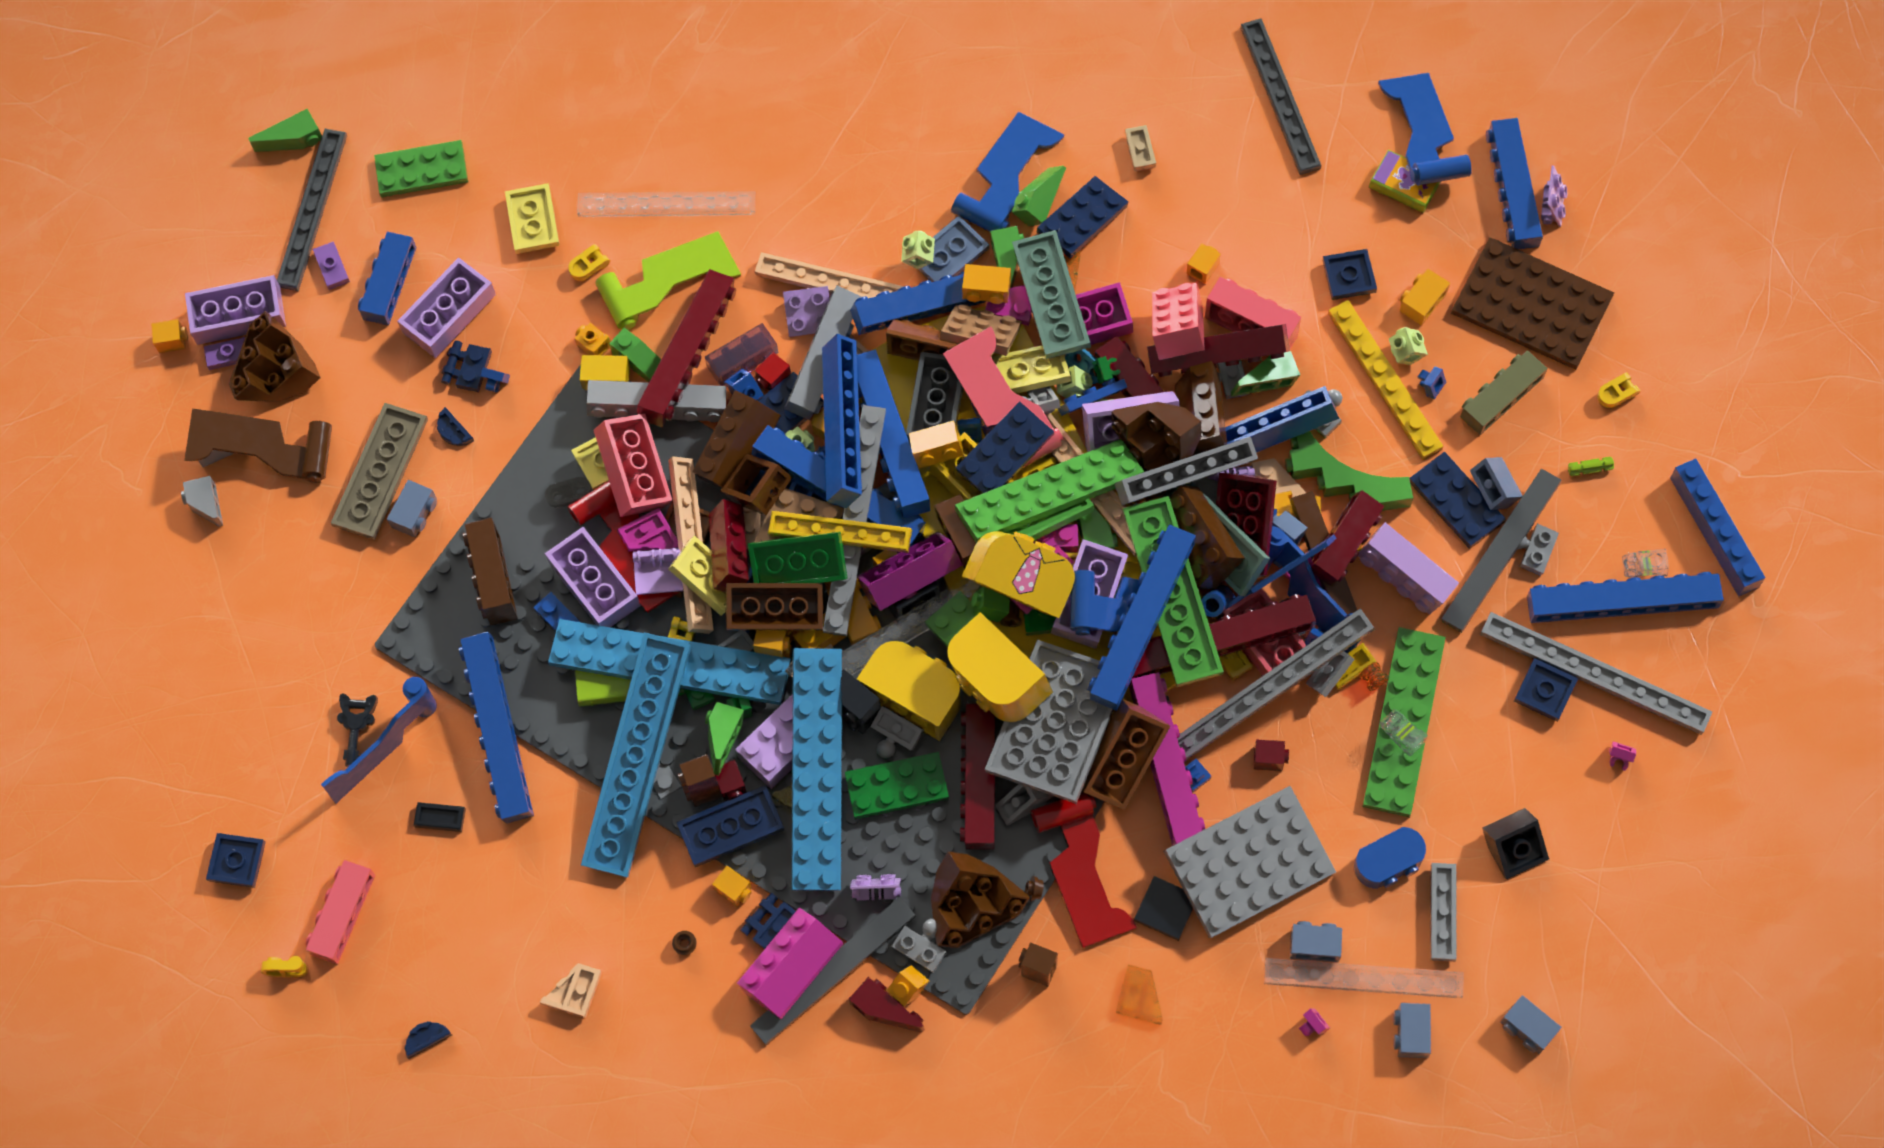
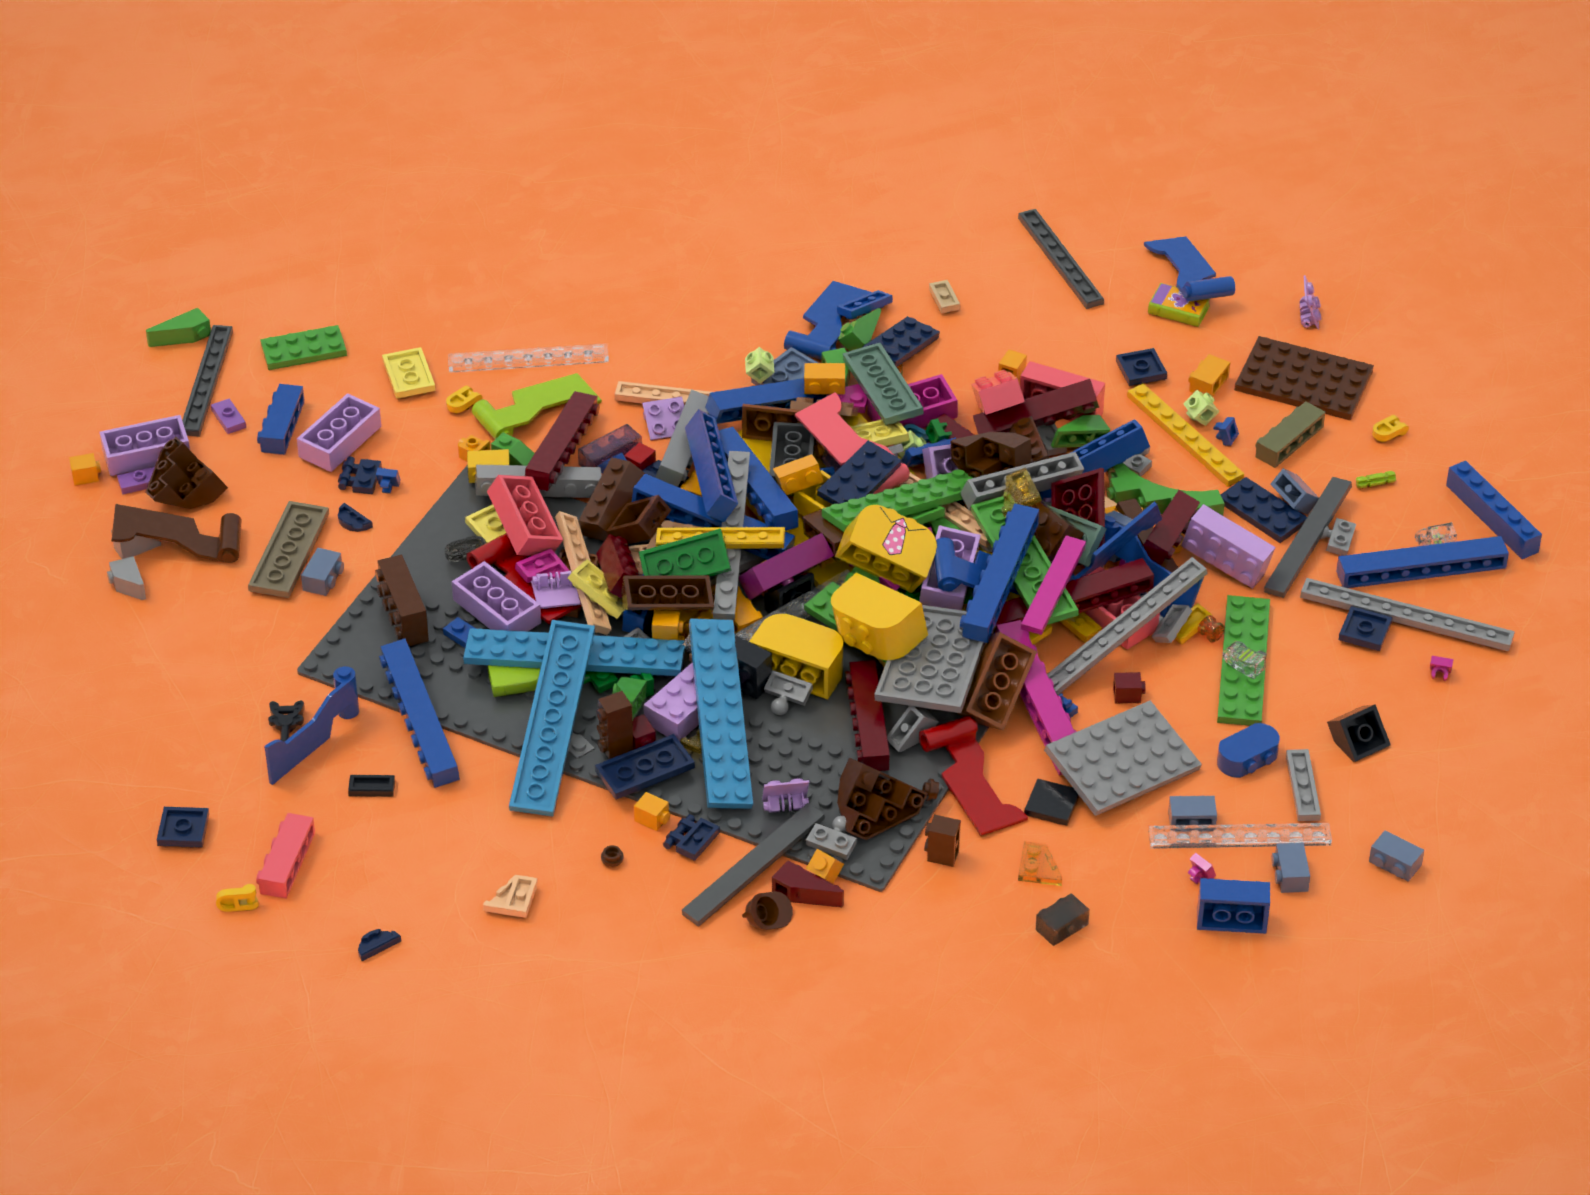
camera: 10 degrees left, 25 degrees down
(790, 963) = (712, 858): dark pink slope -> none
(841, 1040) = (769, 910): none -> reddish brown piece
(896, 785) = (793, 730): green plate -> none
(1048, 156) = (864, 304): none -> blue plate
(1154, 1079) = (1062, 919): none -> clear smoke brick
(1179, 500) = (1019, 491): none -> clear yellow wing
(1199, 636) = (1053, 585): none -> dark pink tile
(1341, 1085) = (1233, 905): none -> blue brick
(1514, 183) = (1274, 299): blue brick -> none

